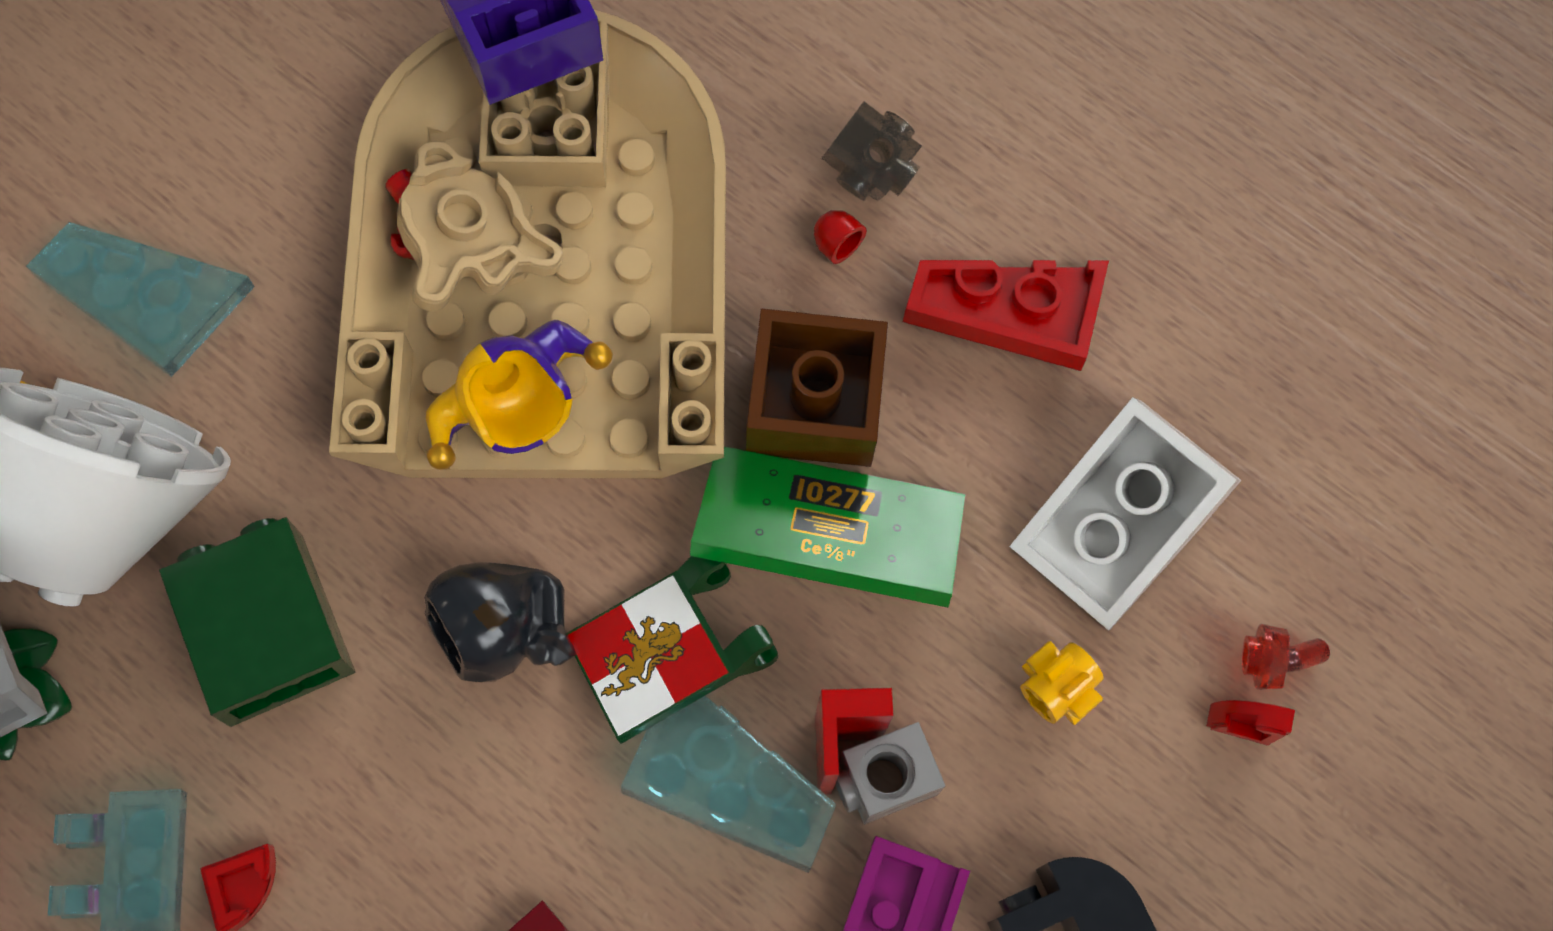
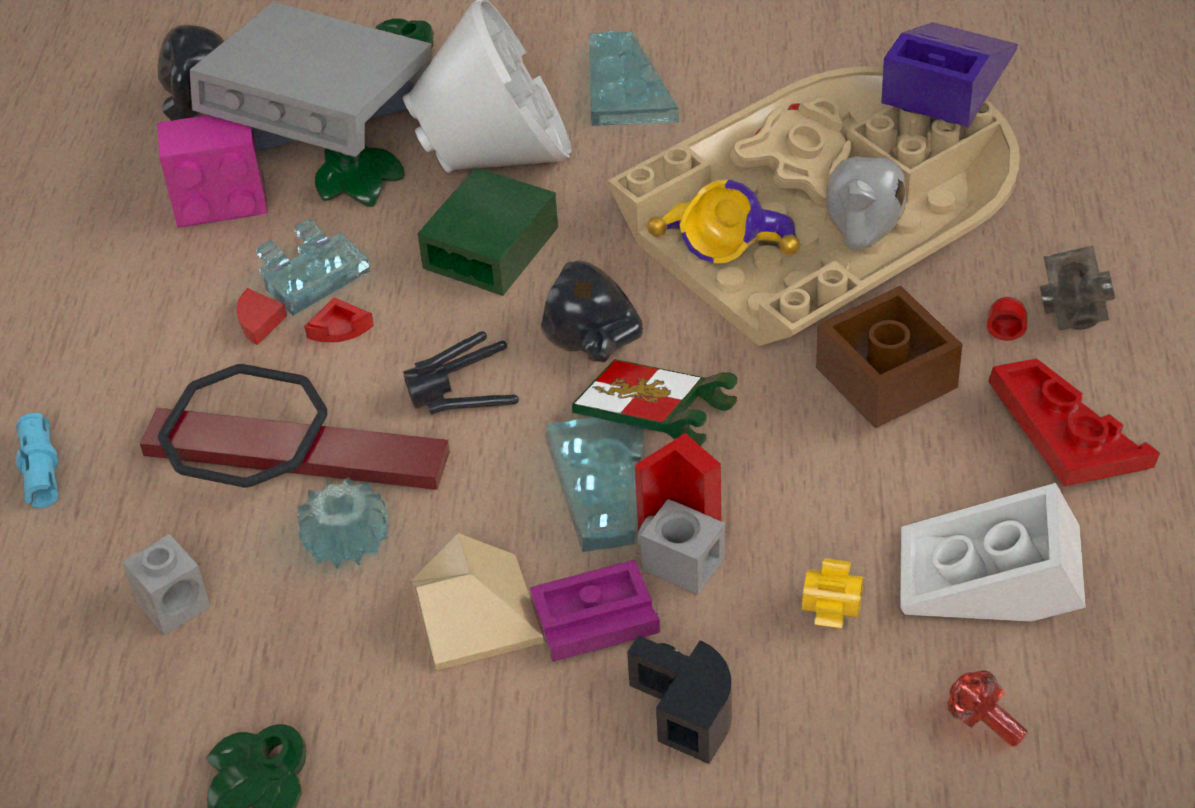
camera: 60 degrees right, 25 degrees down
(435, 855) = (430, 380): none -> black plant
(615, 240) = (865, 199): none -> light grey piece
(830, 526) = (812, 424): green tile -> none
(1251, 720) = (923, 721): red tile -> none

